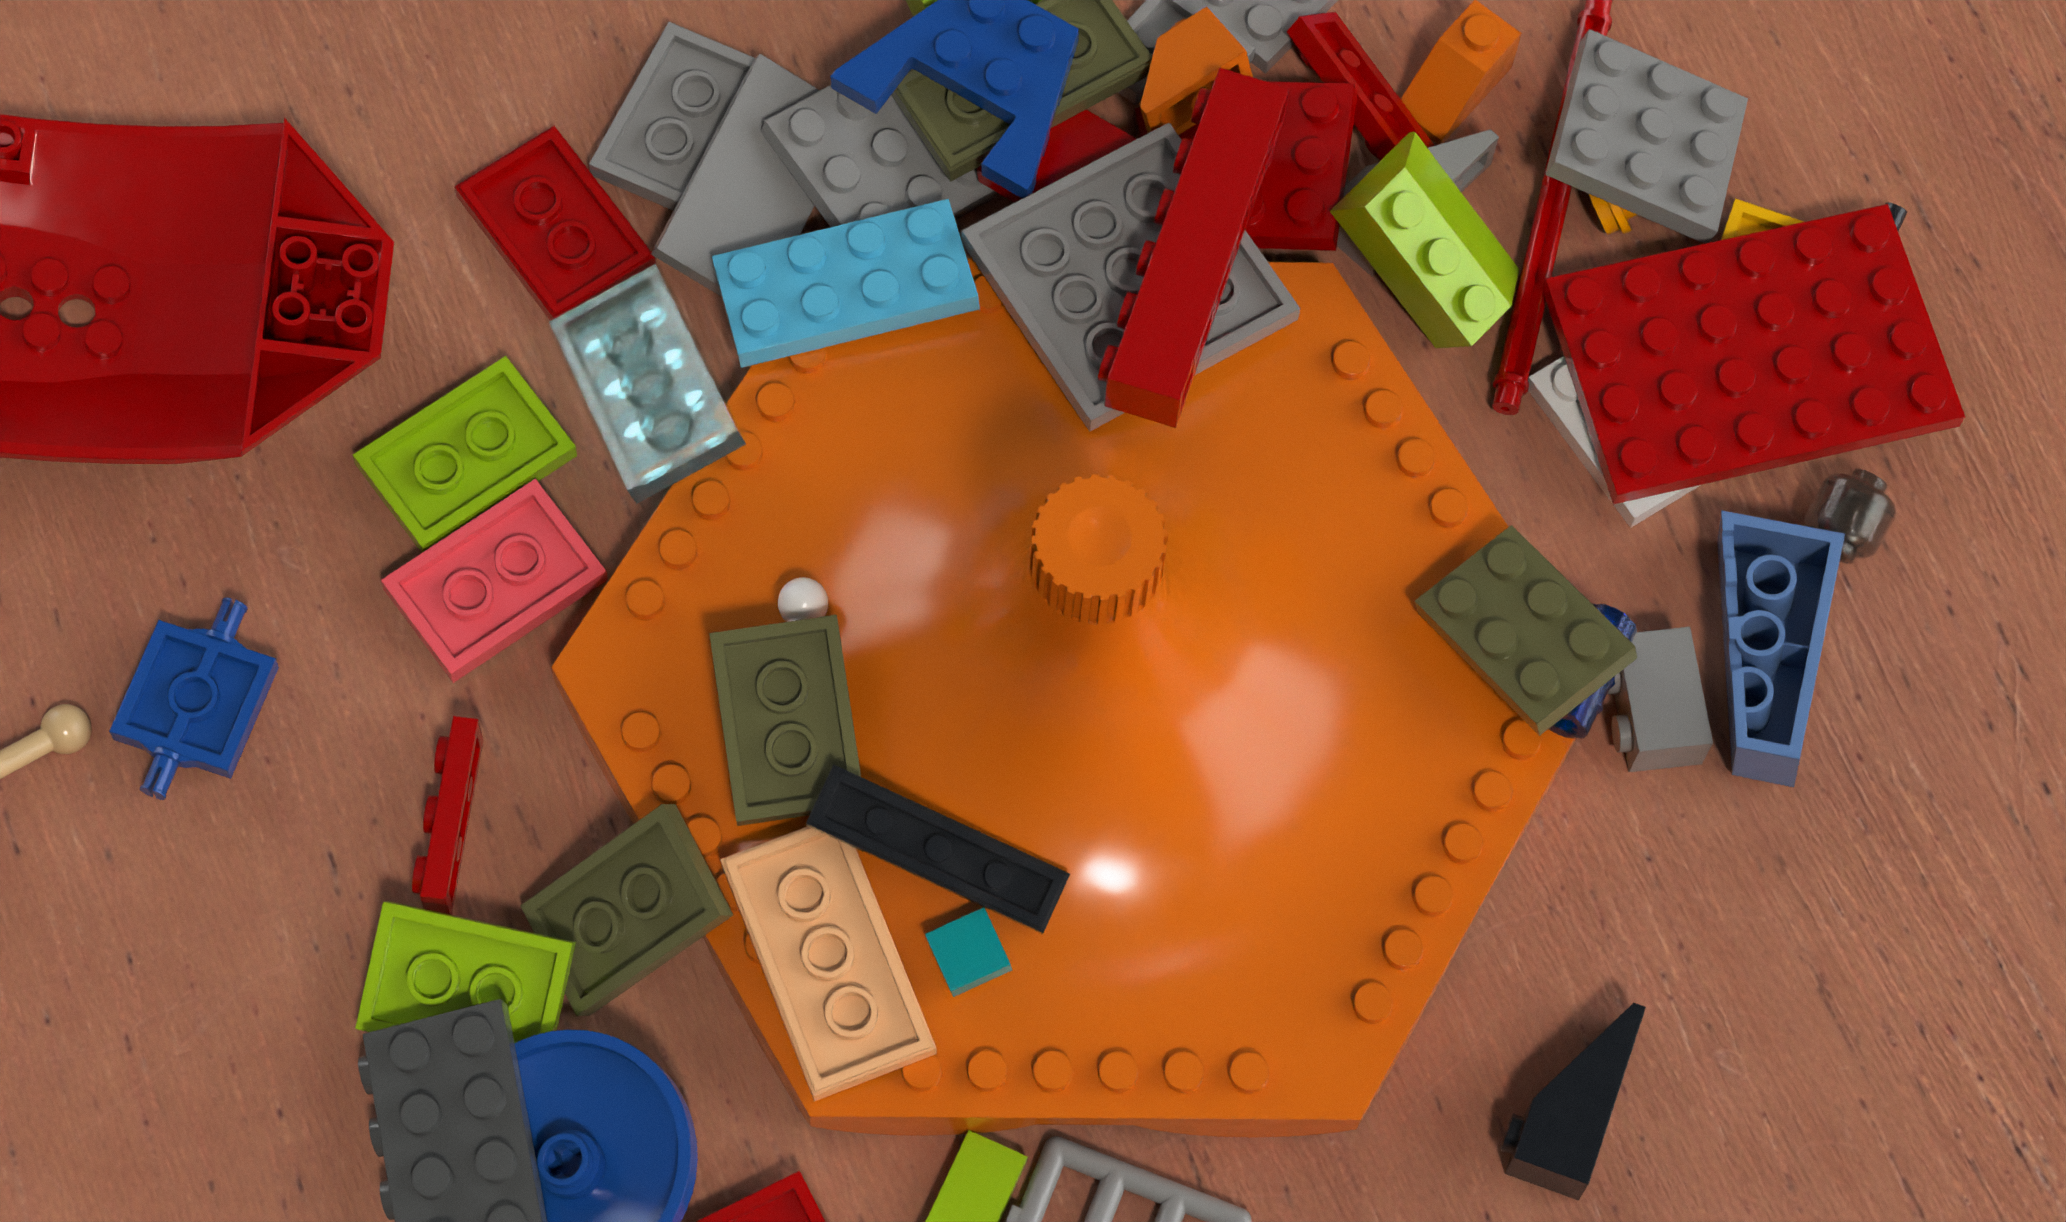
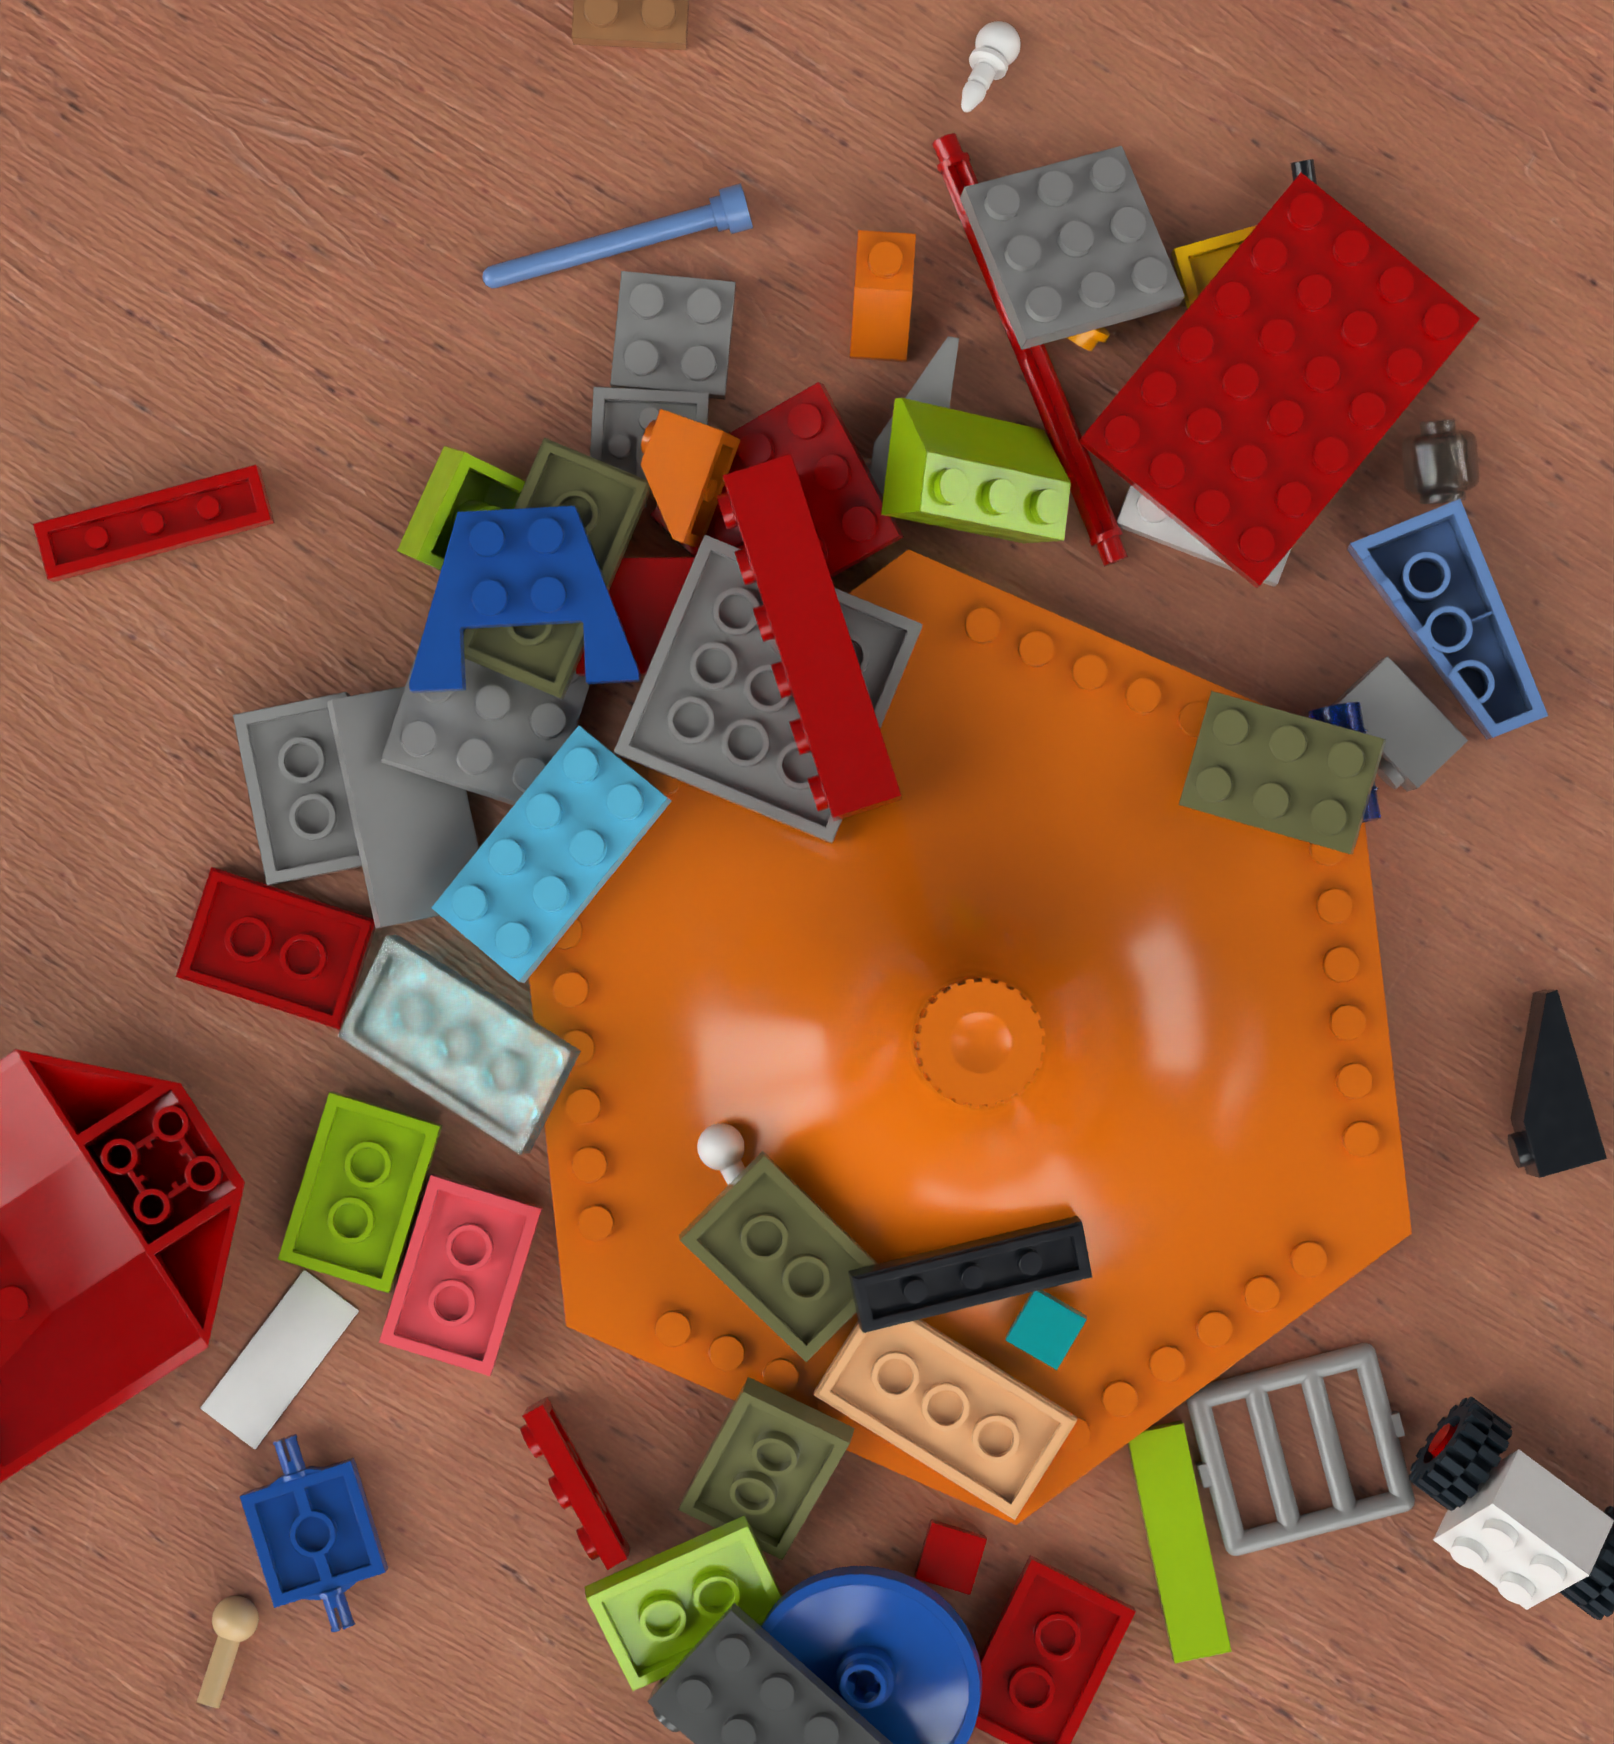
camera: 35 degrees left, 20 degrees up
(283, 548) = (279, 1359): none -> white sticker
(728, 1126) = (950, 1557): none -> red tile
(1339, 58) = (805, 359): red plate -> none

